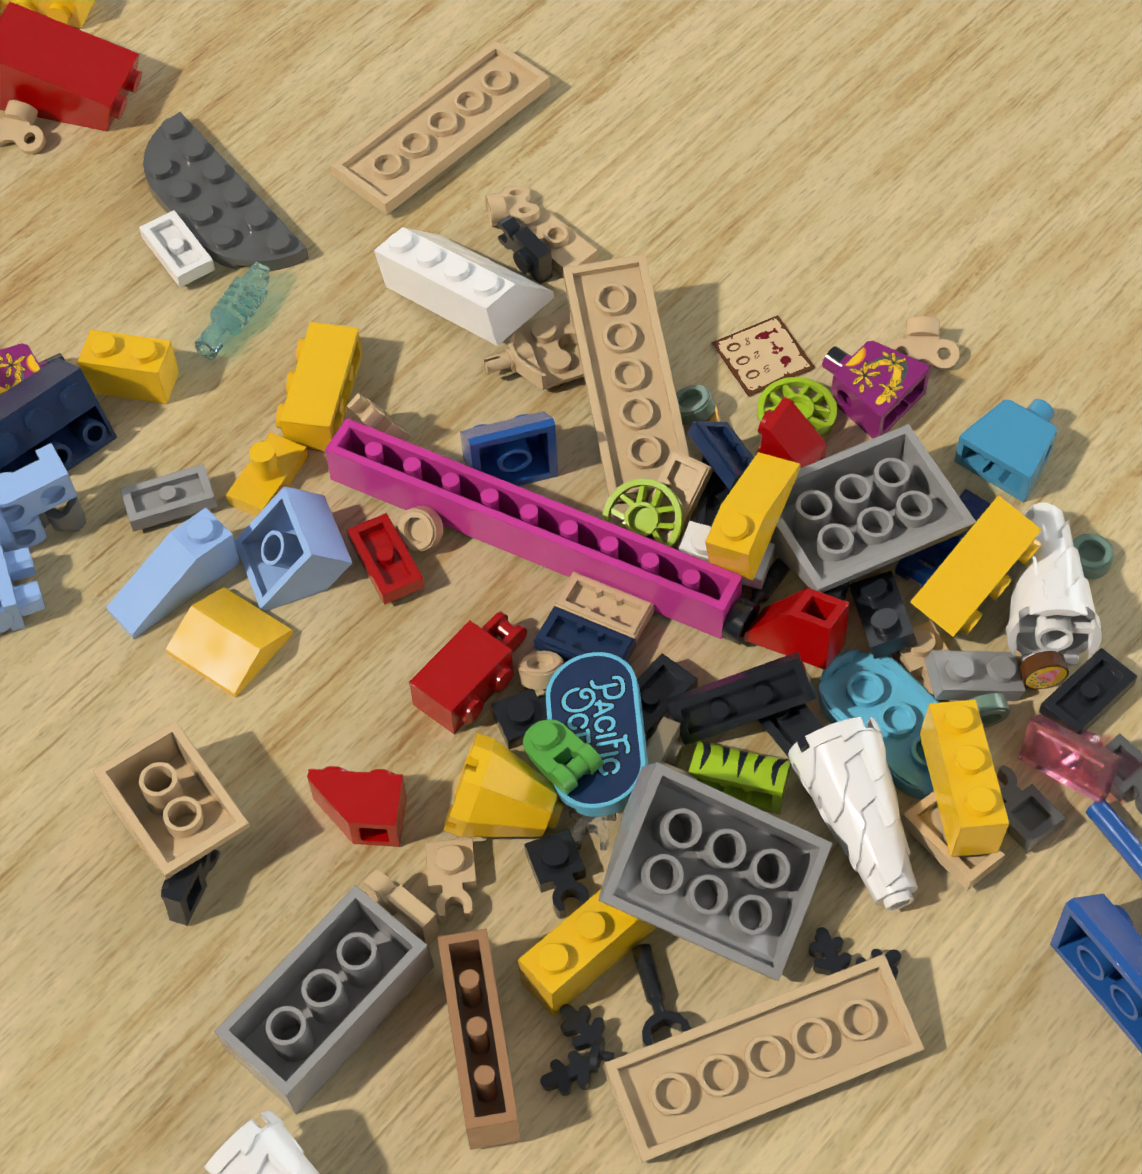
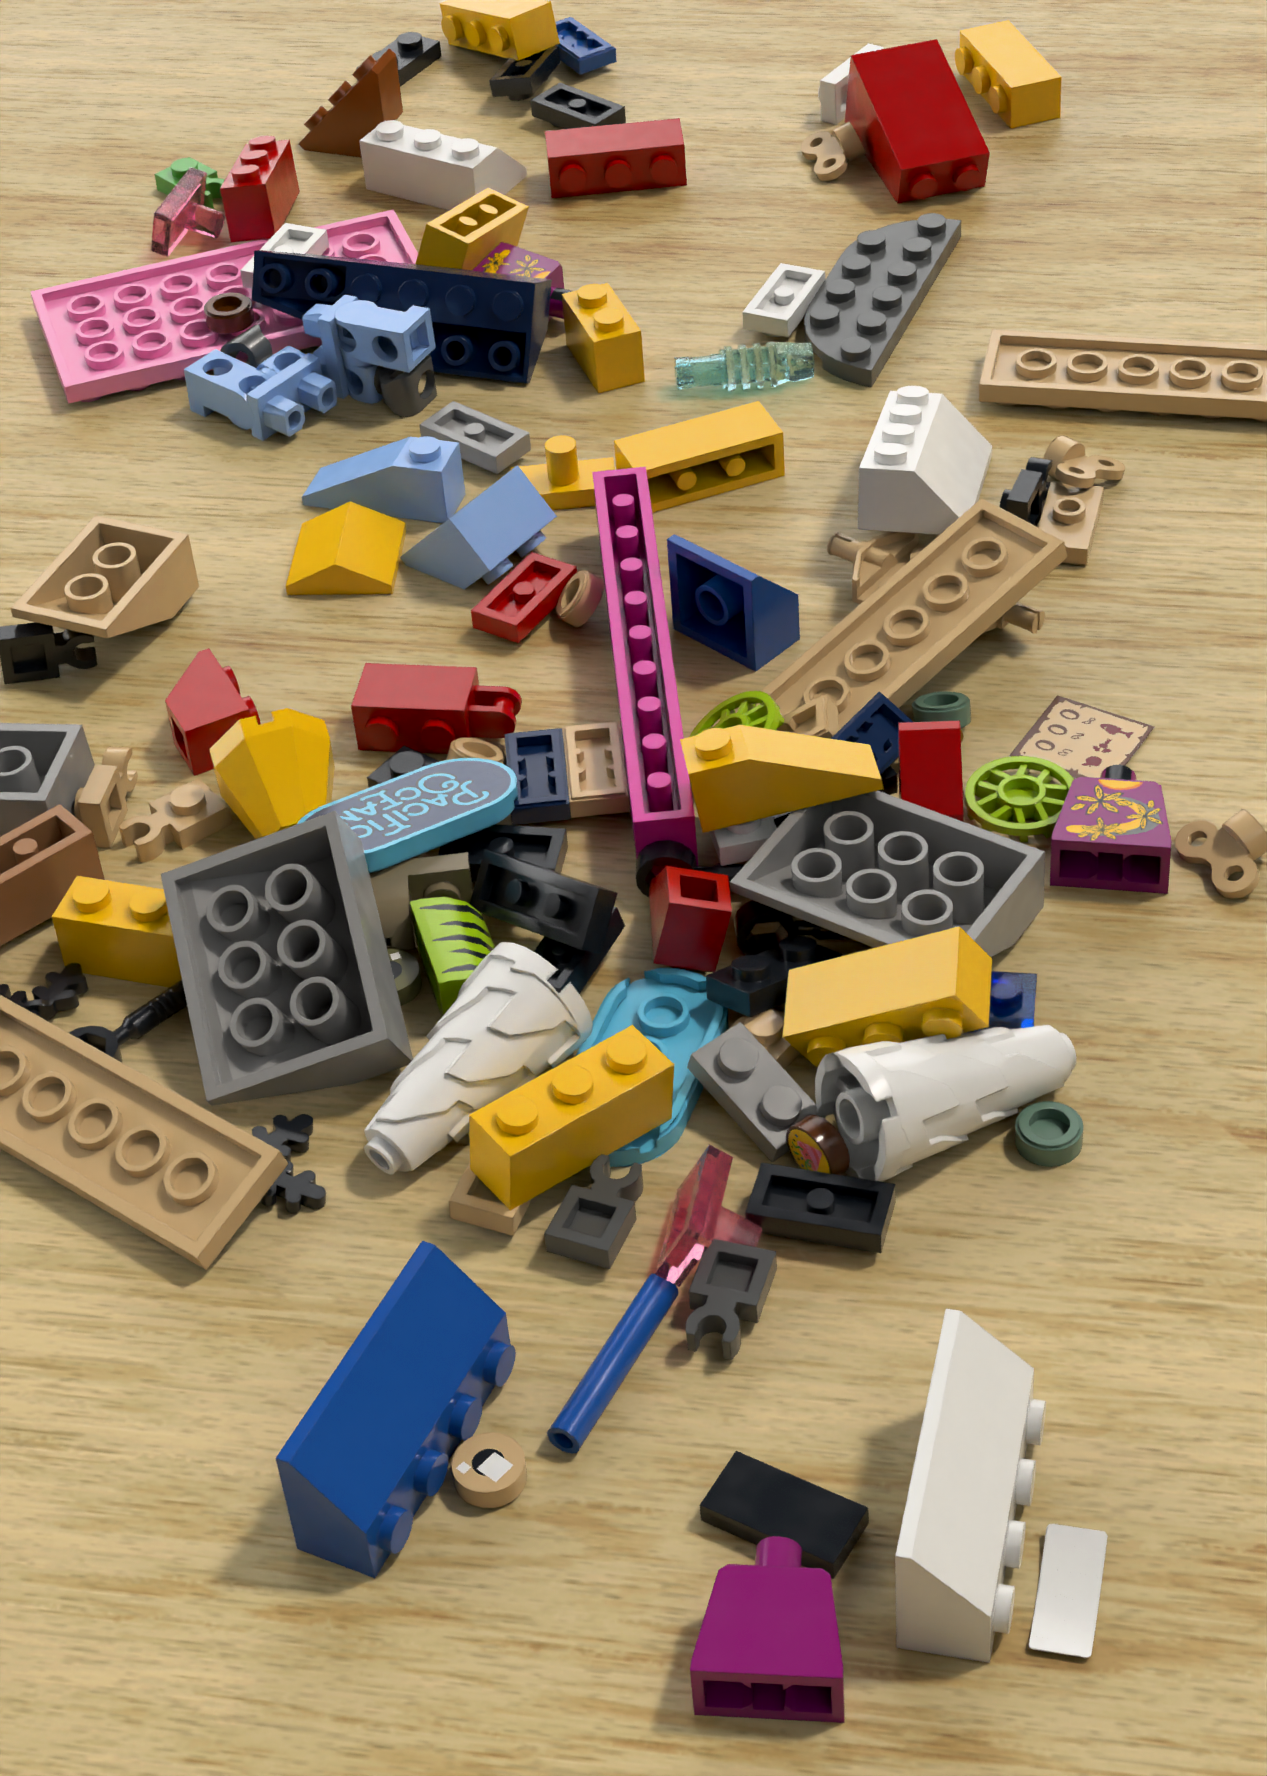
camera: 60 degrees right, 15 degrees down
(376, 417) = (687, 507): tan plate -> none
(551, 745) = (348, 787): bright green plate -> none
(992, 708) = (713, 1121): sand green tile -> none
(1009, 446) = (1144, 983): dark azure torso -> none

